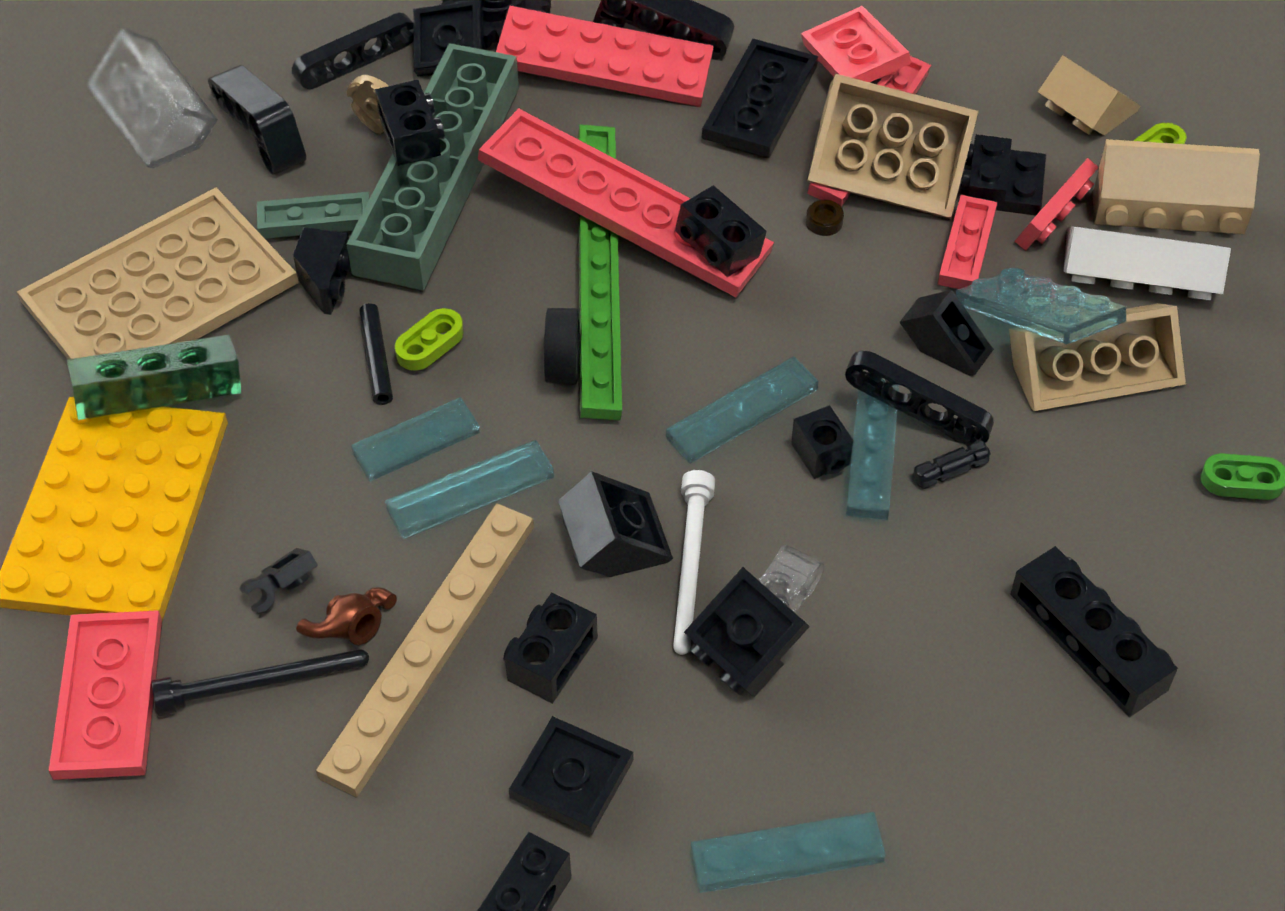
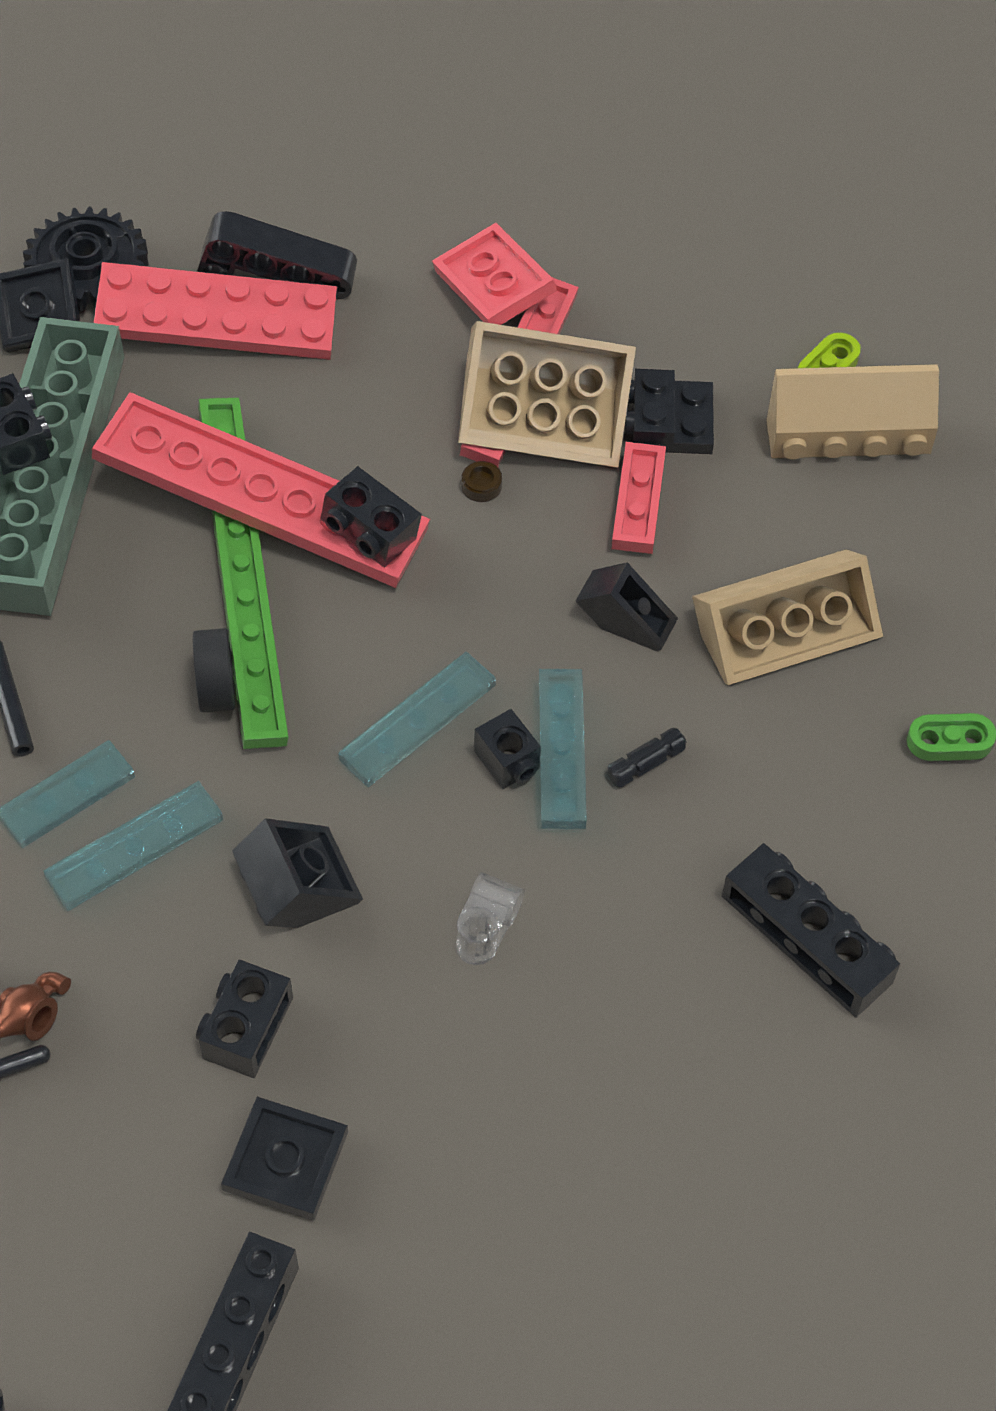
camera: 10 degrees left, 5 degrees up
(424, 651) = (110, 1036): tan plate -> none
(425, 343) = (62, 676): lime plate -> none
(697, 490) = (380, 818): white piece -> none
(745, 633) = (450, 979): black plate -> none
(760, 97) = (395, 344): black plate -> none
(787, 852) = (519, 1212): clear light blue plate -> none
(922, 393) = (561, 671): black beam -> none
(1041, 305) = (723, 569): clear light blue plate -> none
(1058, 206) = (731, 444): coral plate -> none
(1086, 98) = (750, 310): tan slope -> none
(1146, 260) = (829, 499): white slope -> none

